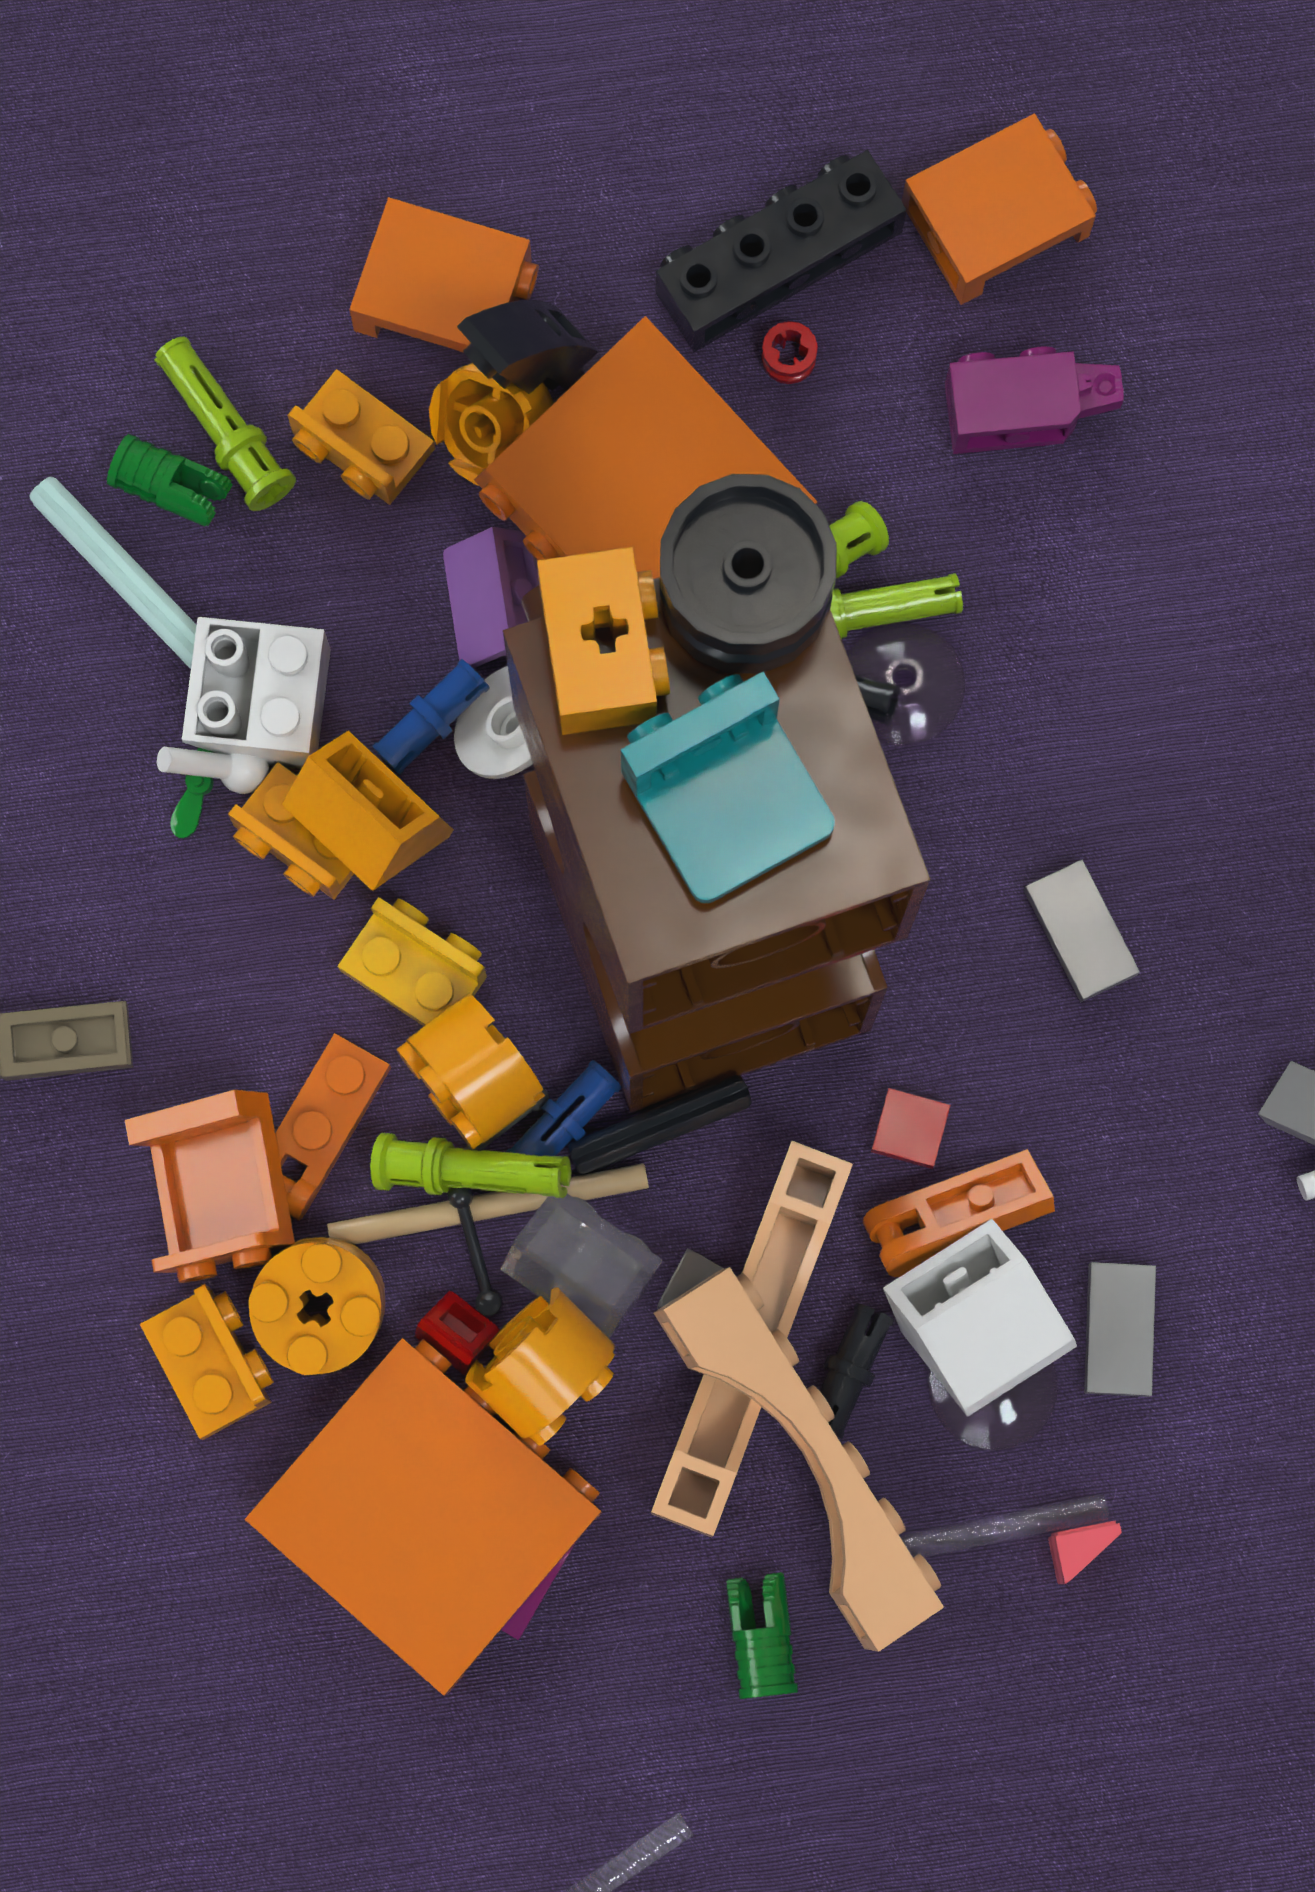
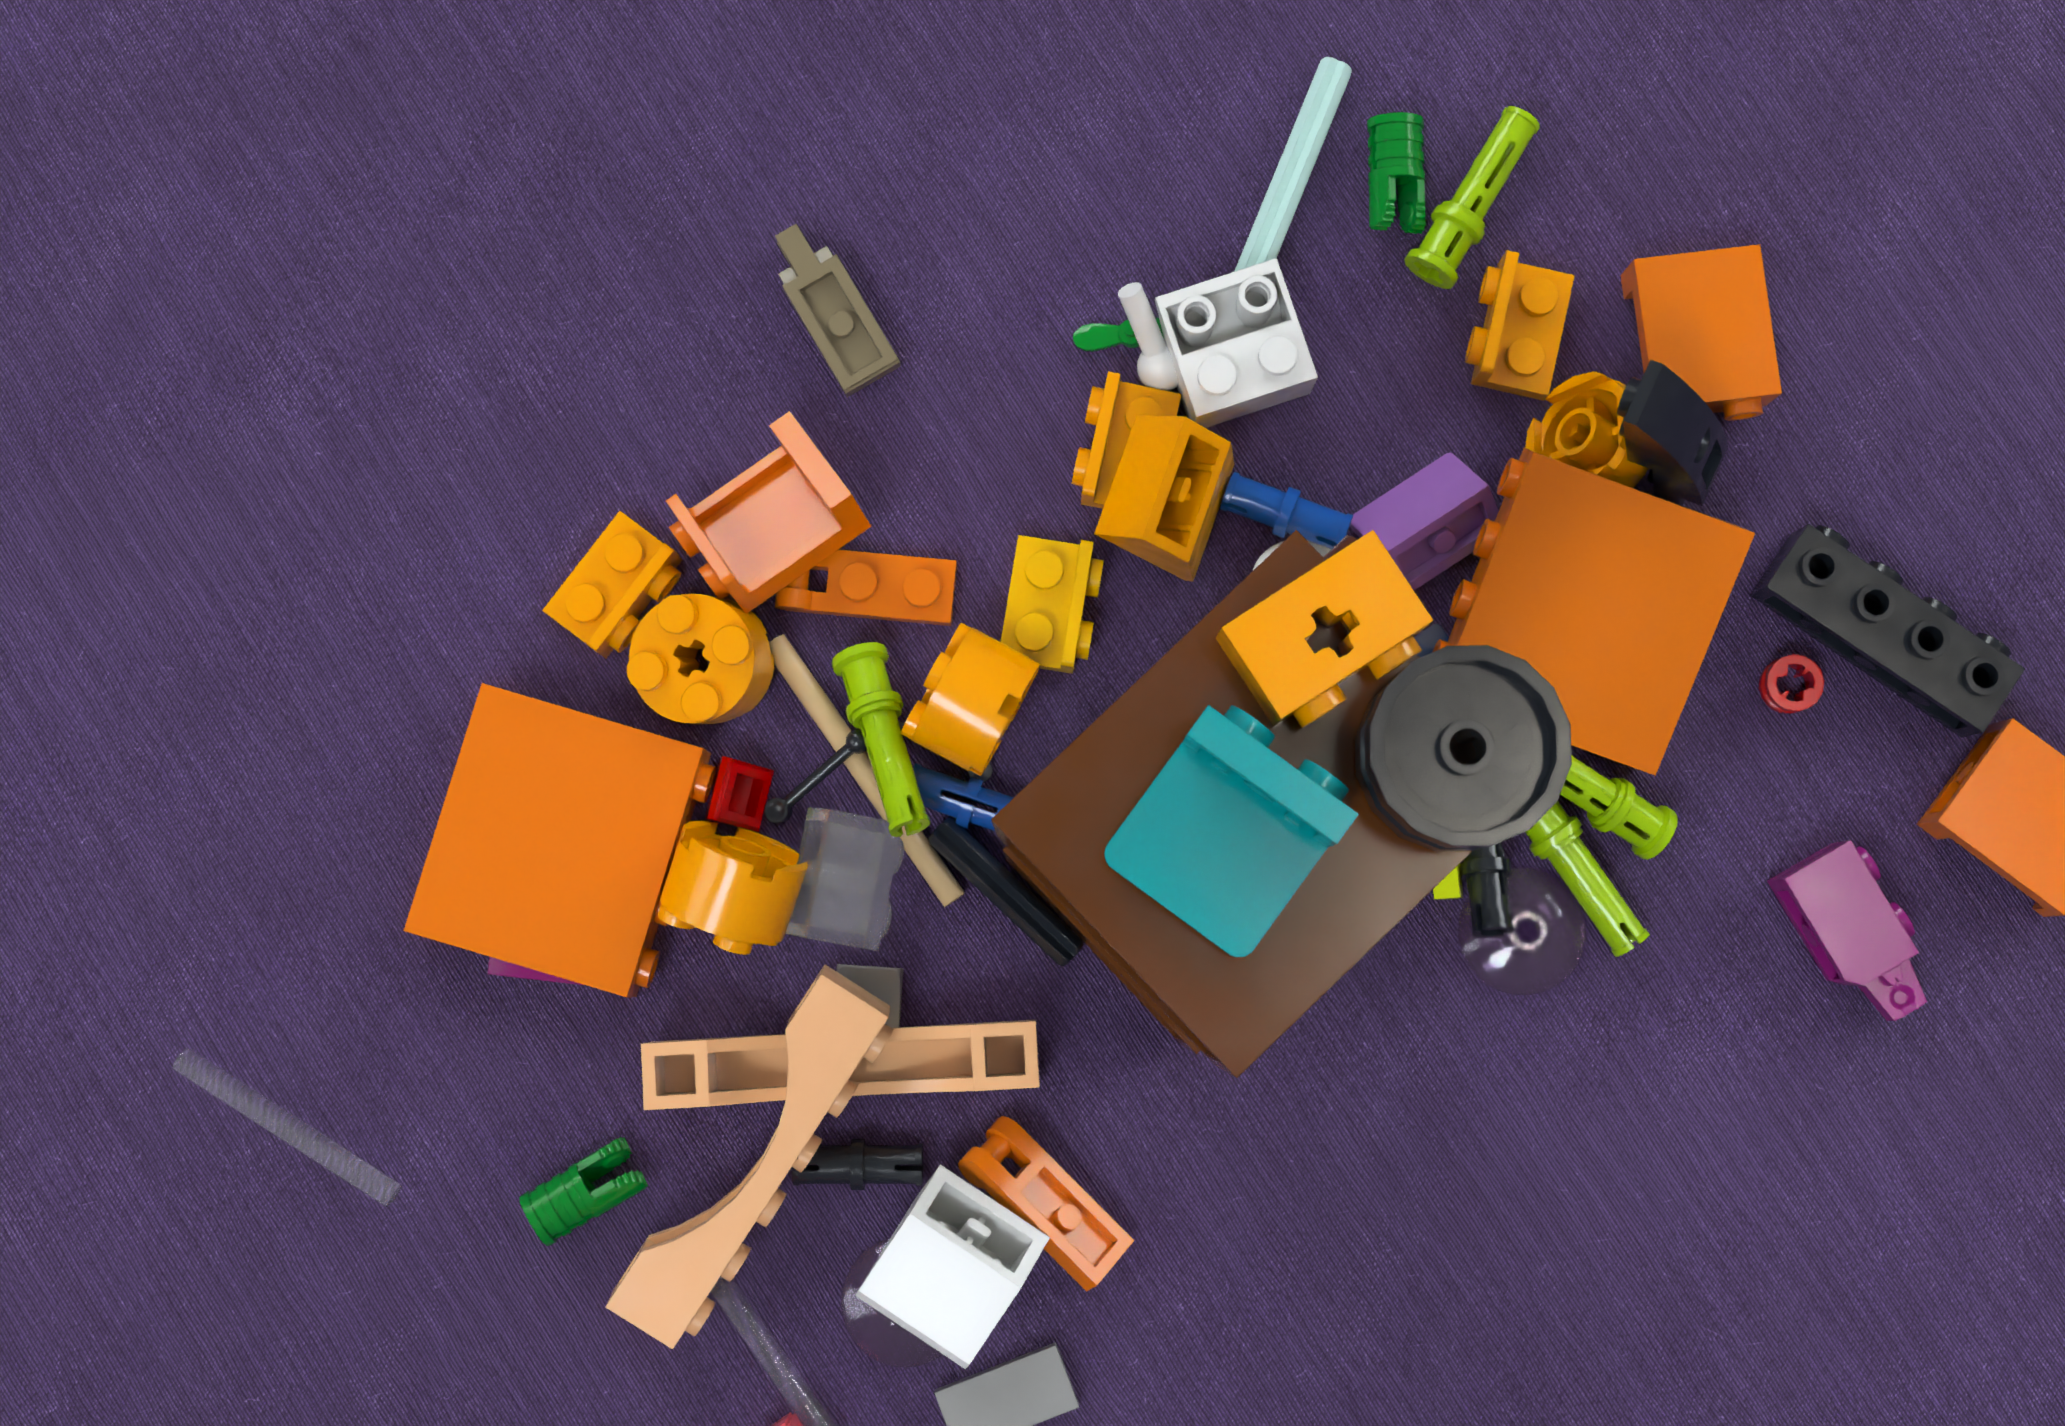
camera: 70 degrees right, 5 degrees up
(910, 1128) = (1106, 1123): tile -> none
(1081, 930) = (1363, 1201): light grey tile -> none

